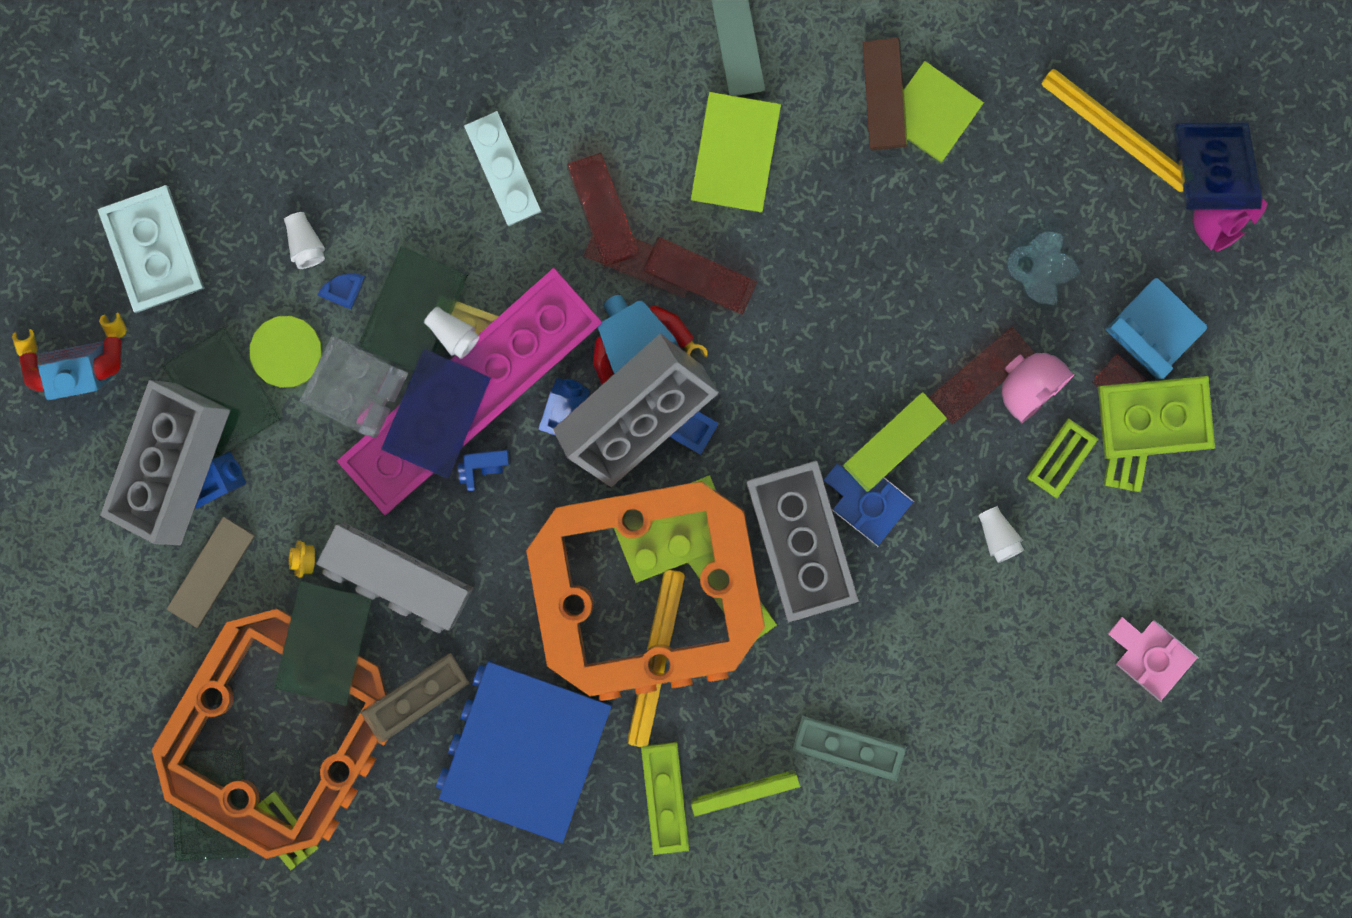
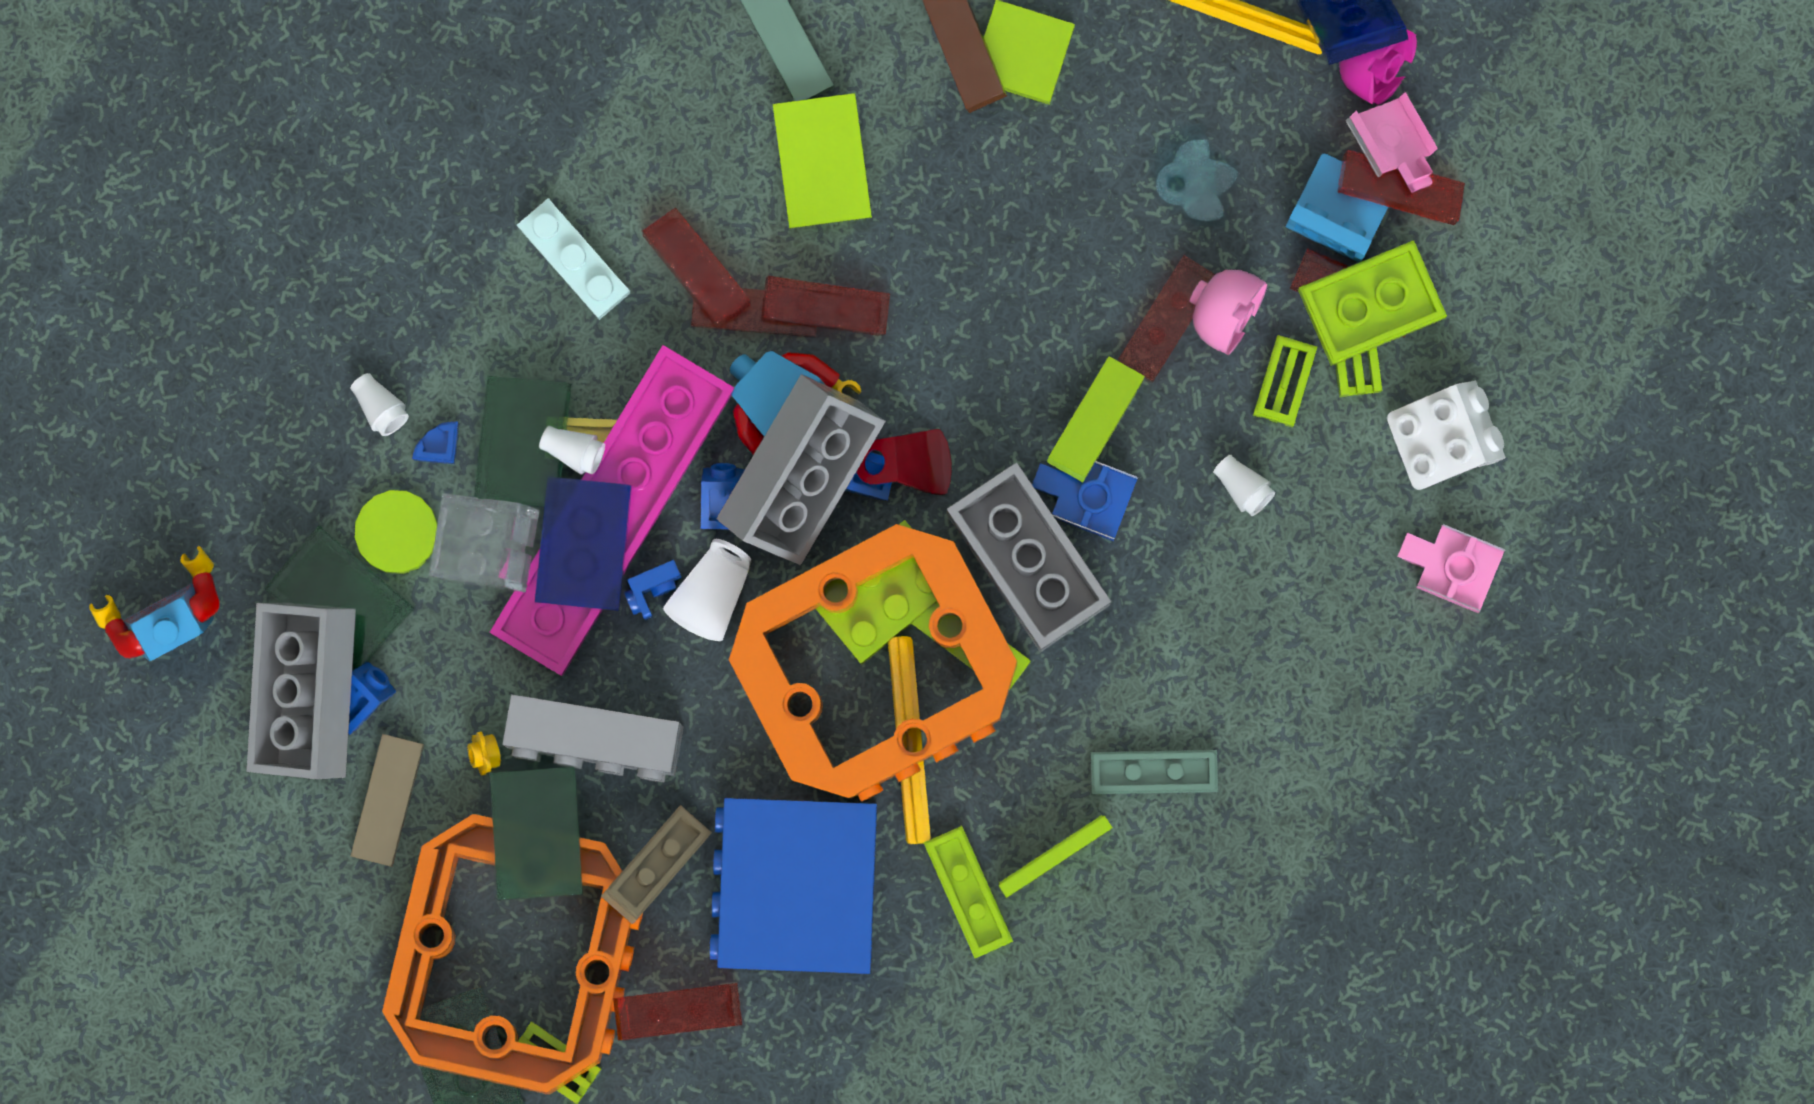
camera: 15 degrees left, 5 degrees down
(151, 249) = (214, 465): light aqua plate -> none
(395, 823) = (677, 1011): none -> clear red tile
(530, 484) = (710, 591): none -> white piece
(732, 429) = (914, 460): none -> dark red piece
(1181, 546) = (1446, 434): none -> white bracket
(1212, 327) = (1438, 201): none -> clear red tile
(1220, 285) = (1395, 138): none -> bright pink piece

